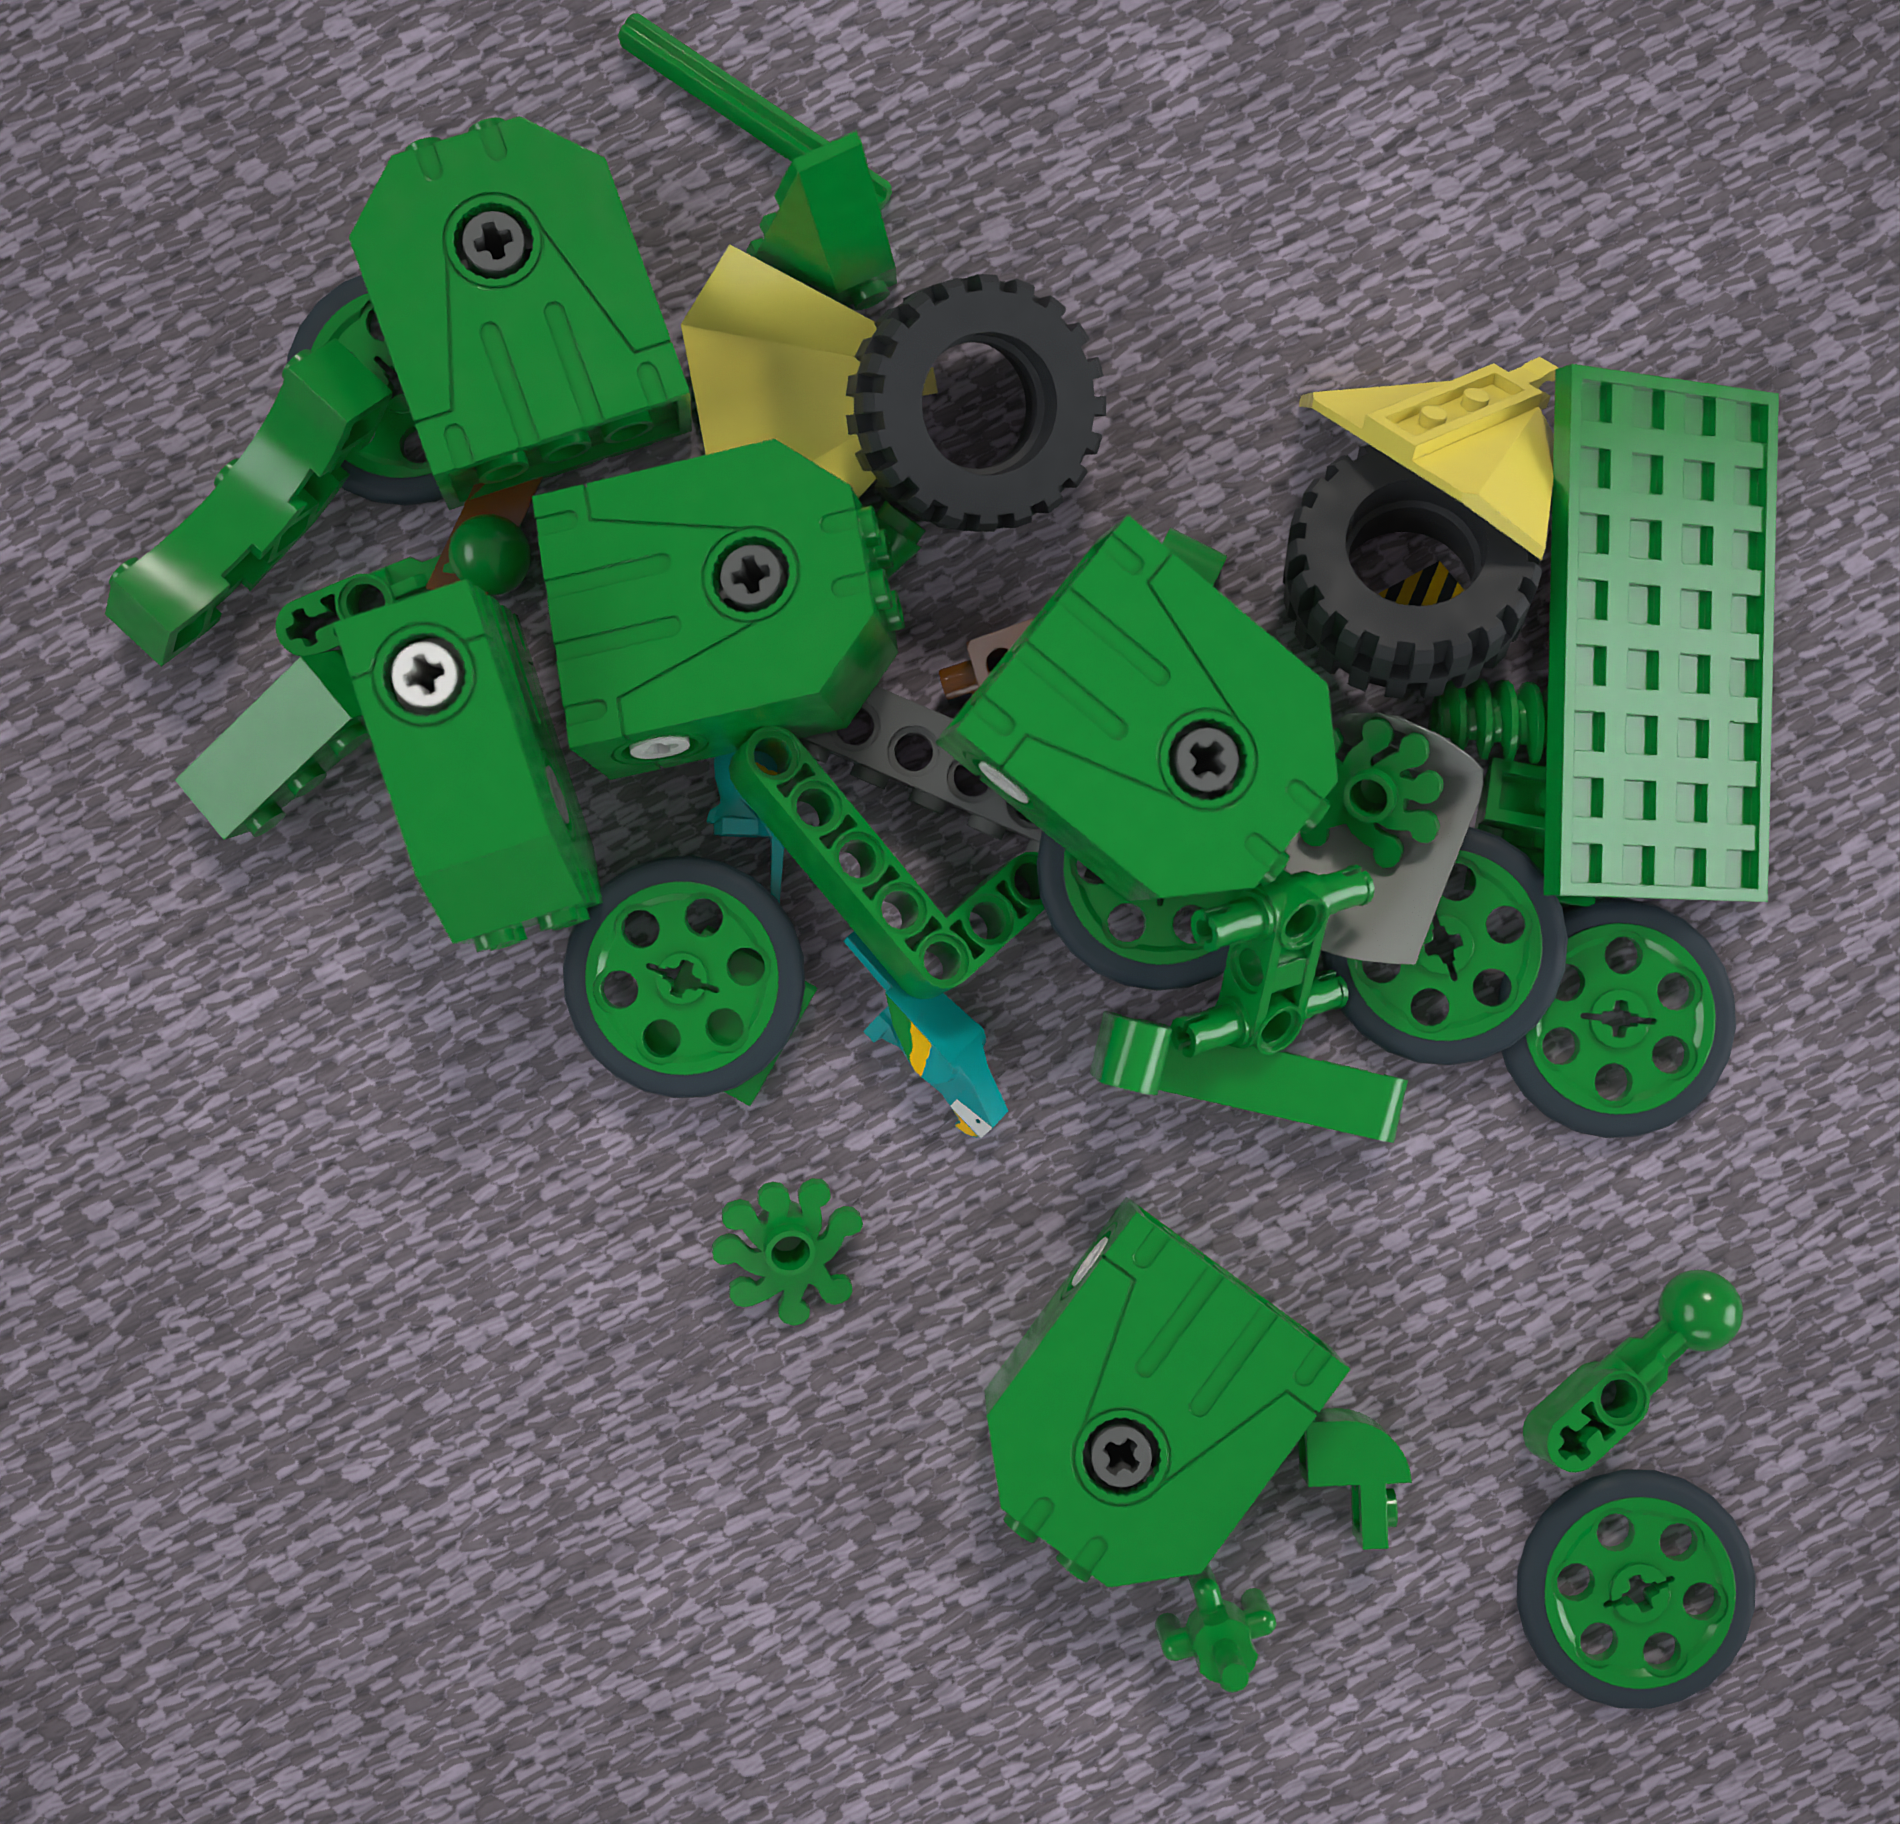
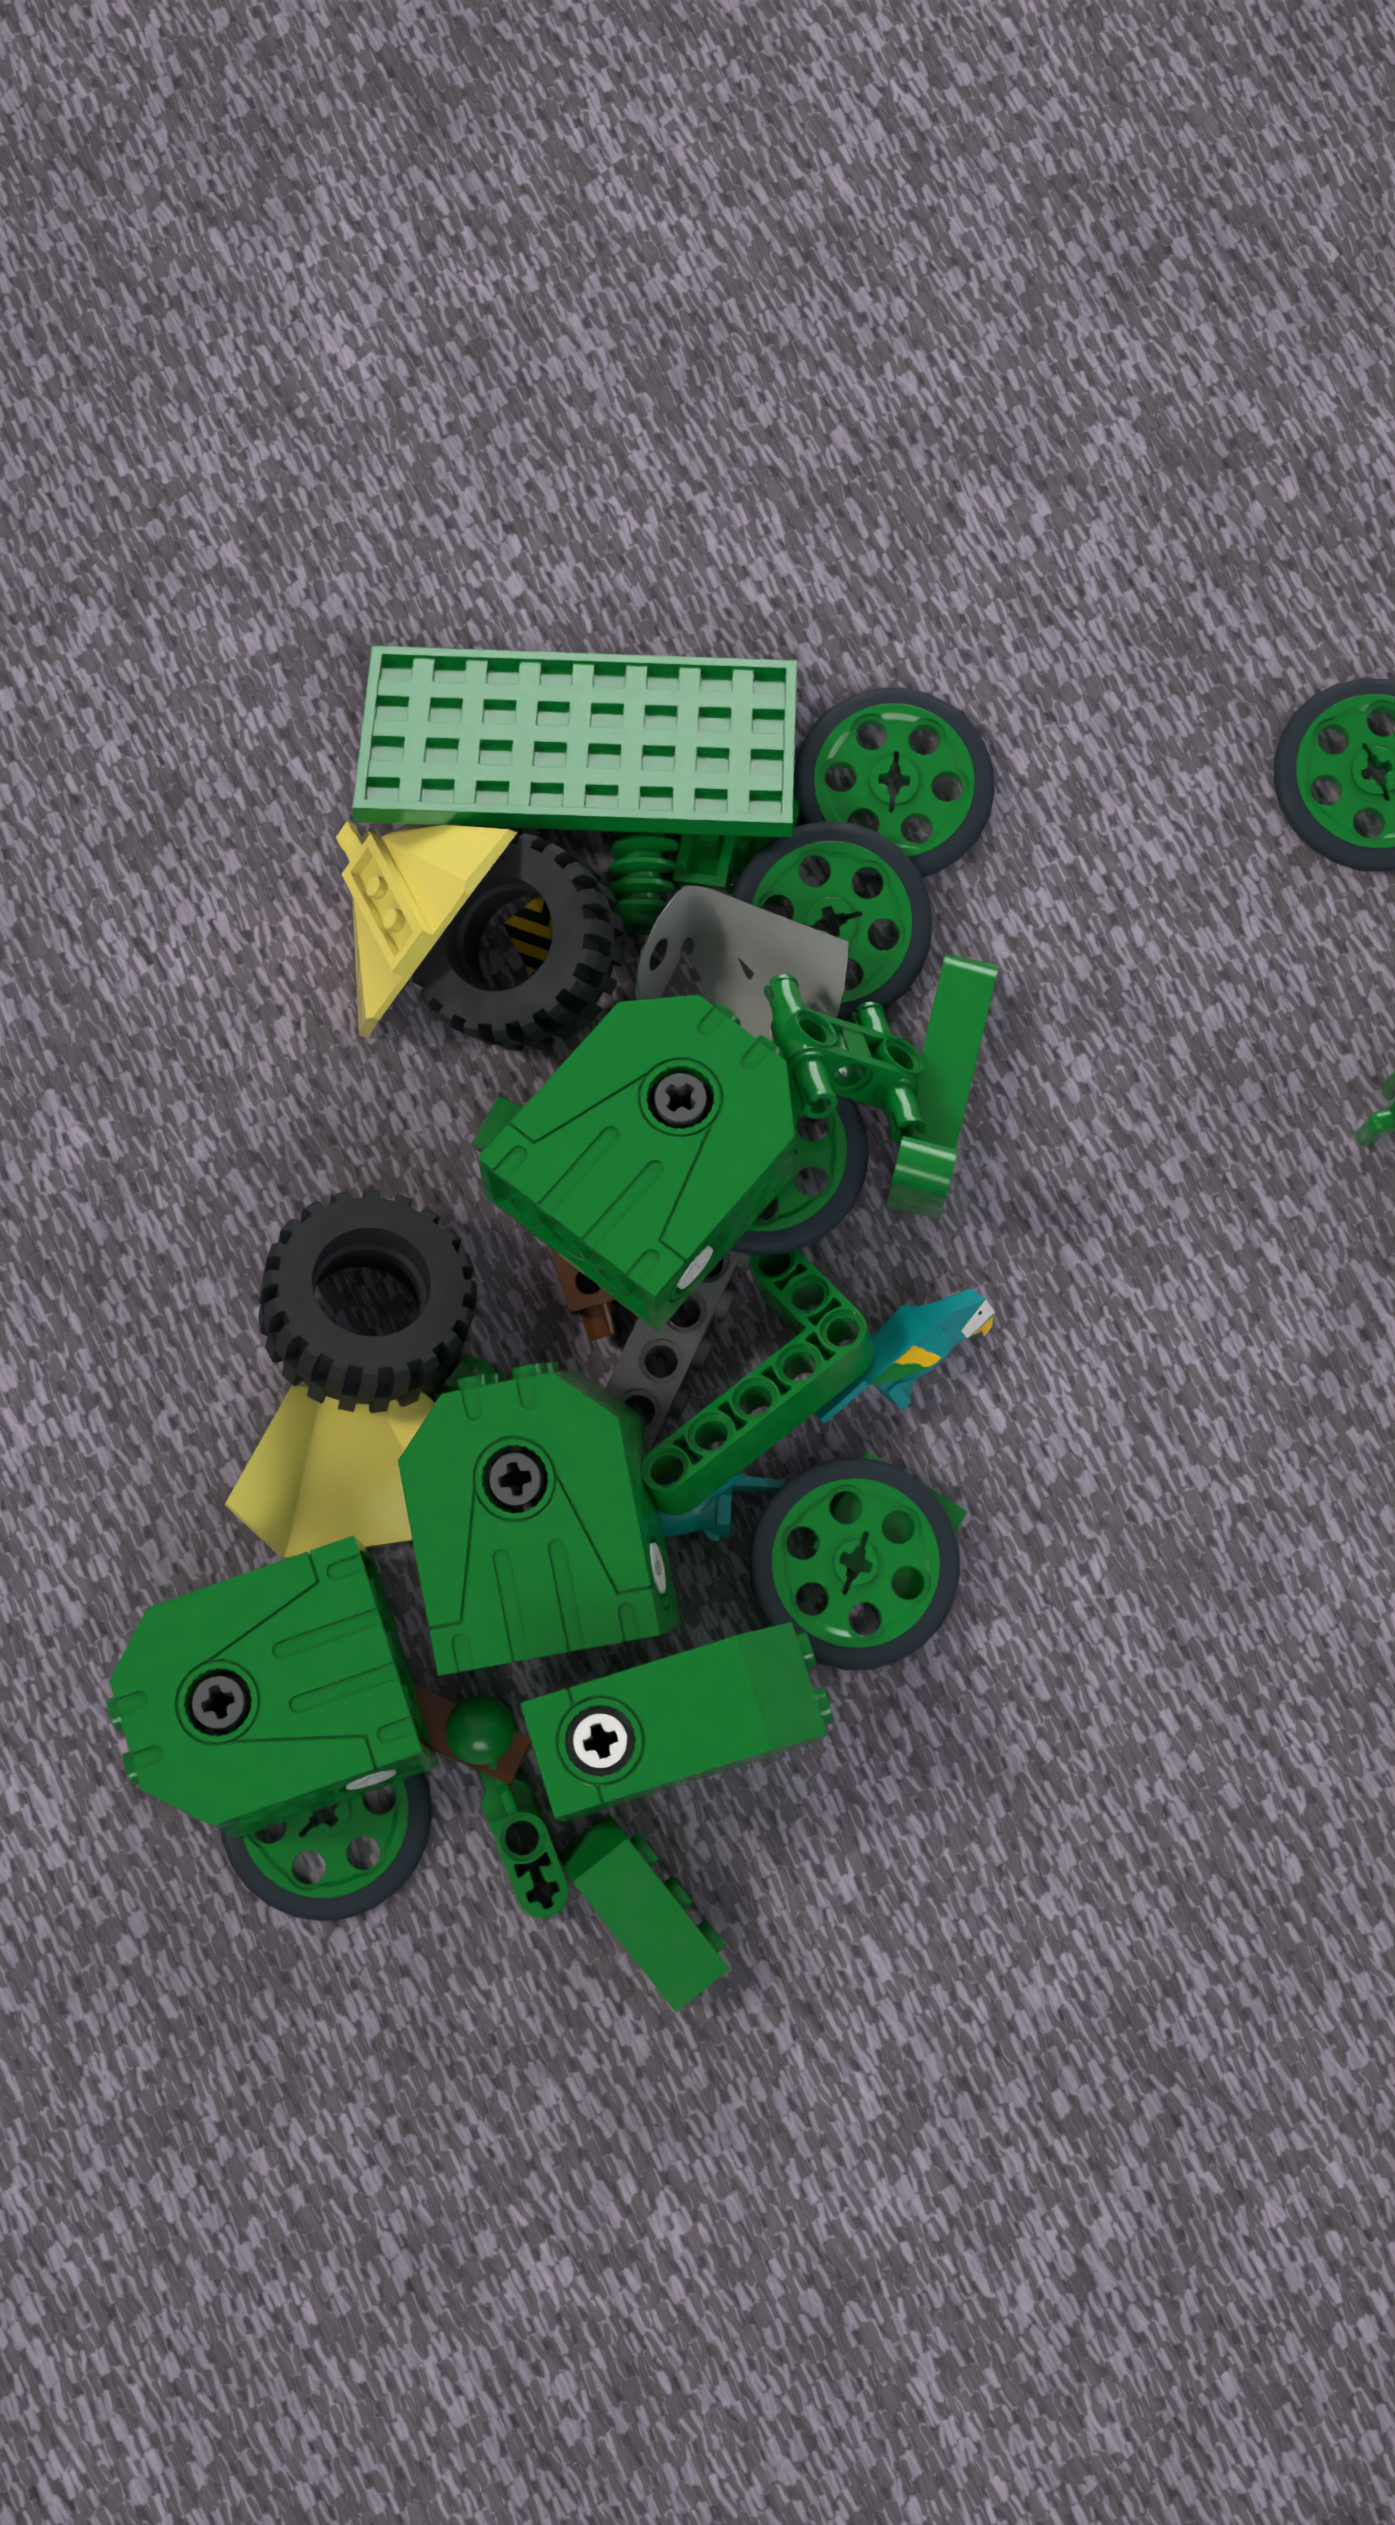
camera: 90 degrees left, 10 degrees down
(257, 505) = (432, 1940): green brick -> none
(725, 93) = (98, 1497): green axle -> none
(788, 1248) = (1090, 1476): green animal -> none
(830, 227) = (218, 1417): green wedge -> none
(1183, 1365) = (1188, 1143): green piece -> none
(1356, 1451) = (1260, 1002): green brick -> none
(1381, 792) = (702, 968): green animal -> none
(1695, 1313) = (1141, 723): green beam -> none

